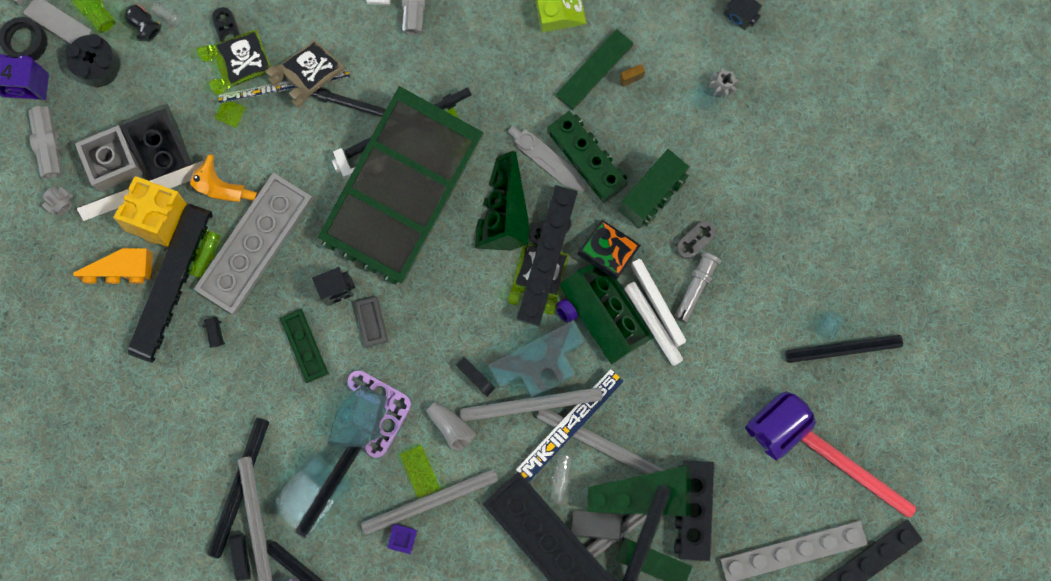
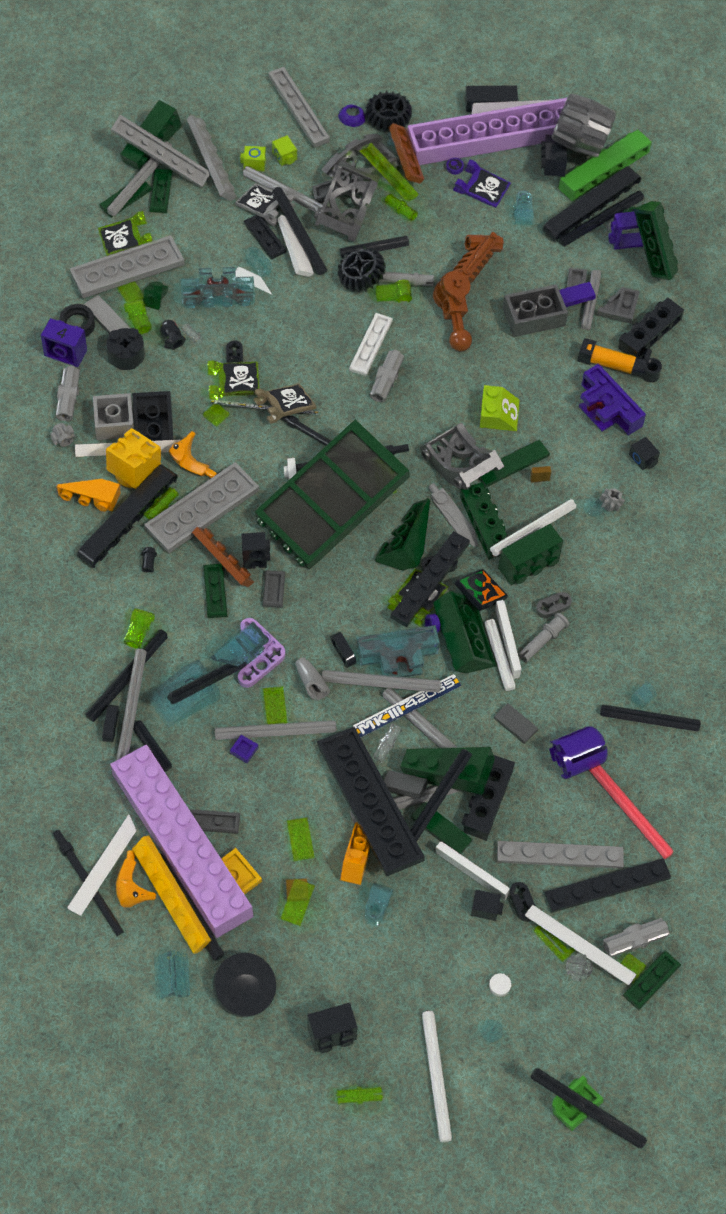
camera: 15 degrees right, 20 degrees down
(231, 419) = (139, 625): none -> clear neon green piece
(299, 302) = (227, 560): none -> dark orange plate
(569, 86) = (460, 477): none -> flat silver fence
(645, 152) = (534, 526): none -> white axle
(697, 404) = (515, 723): none -> dark grey tile

